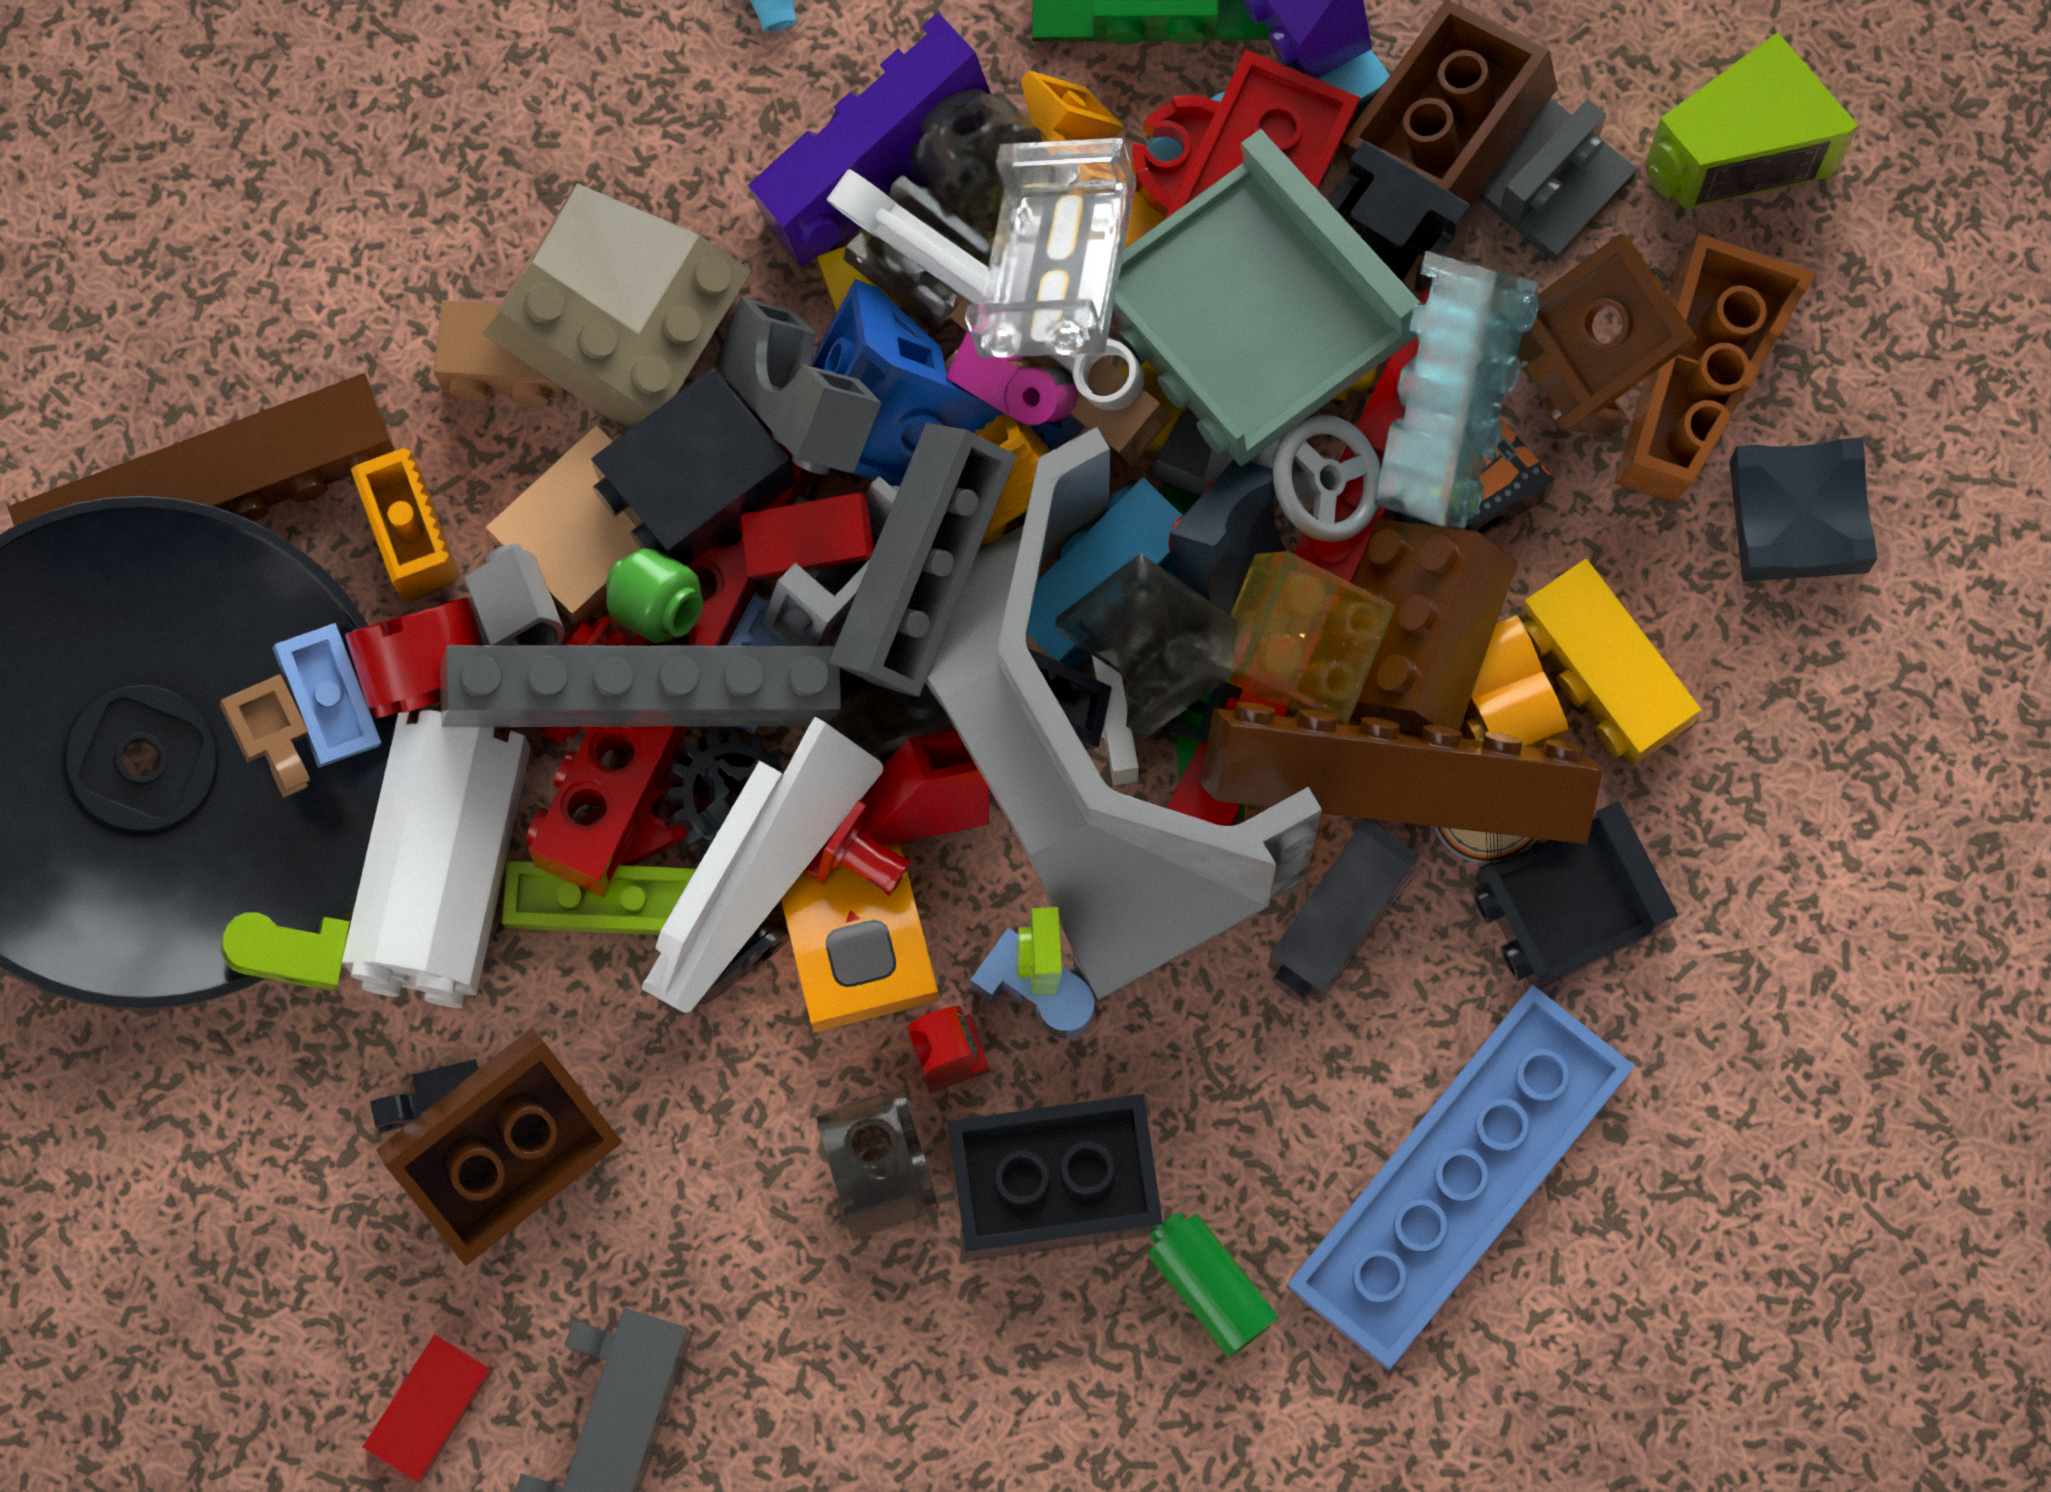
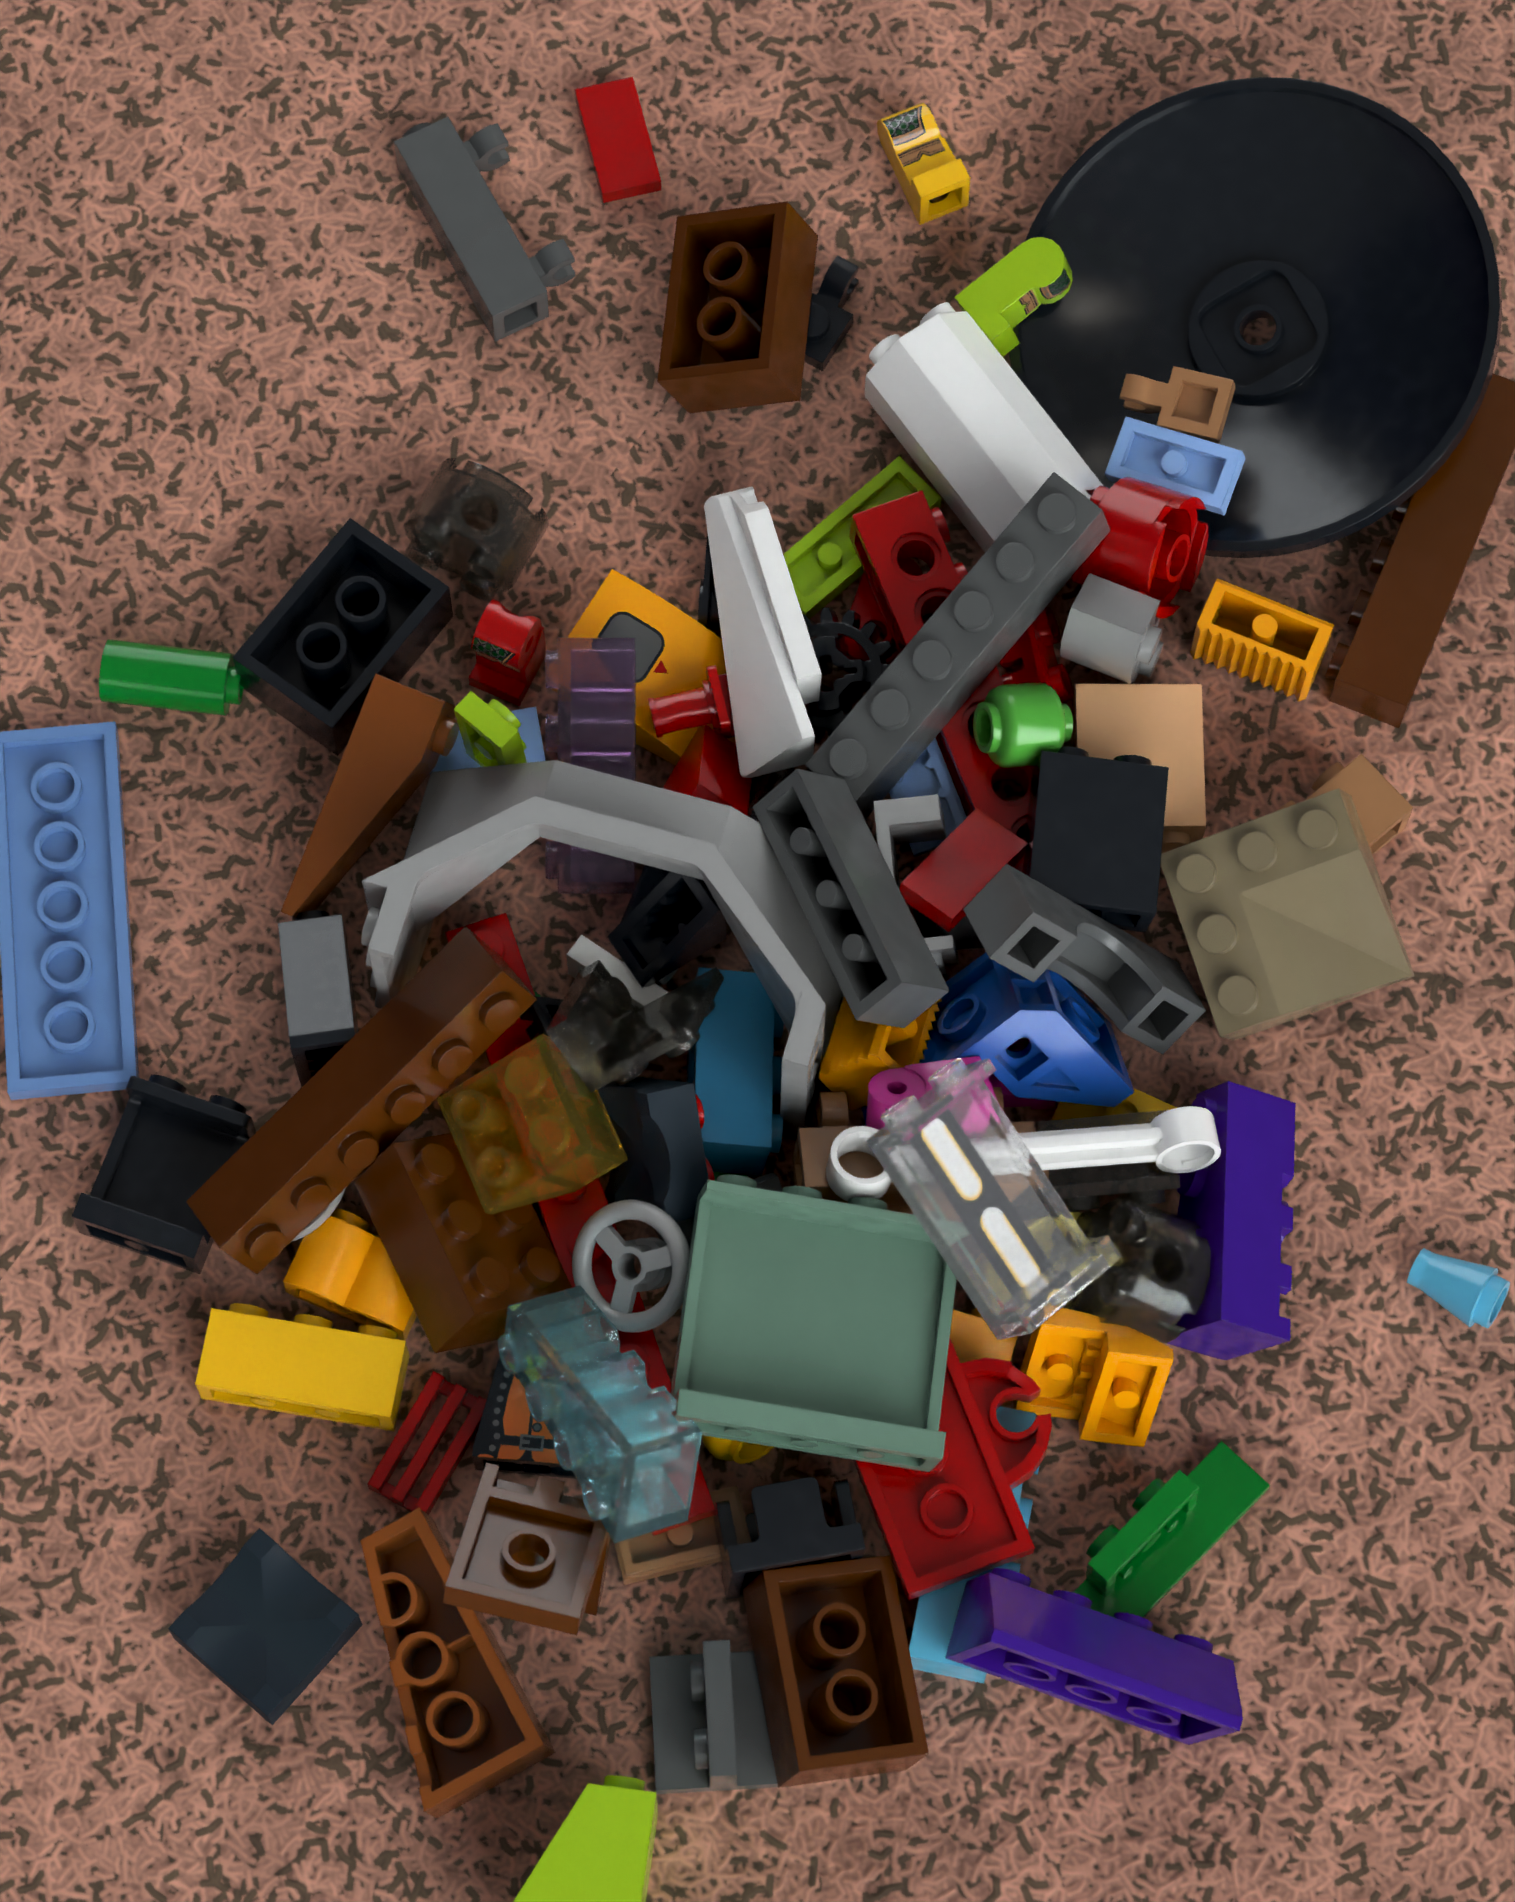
camera: 130 degrees right, 5 degrees down
(225, 1149) = (923, 163): none -> yellow leg
(952, 905) = (594, 732): none -> clear purple brick
(1105, 1034) = (382, 766): none -> dark orange wedge
(1617, 521) = (456, 1397): none -> red tile

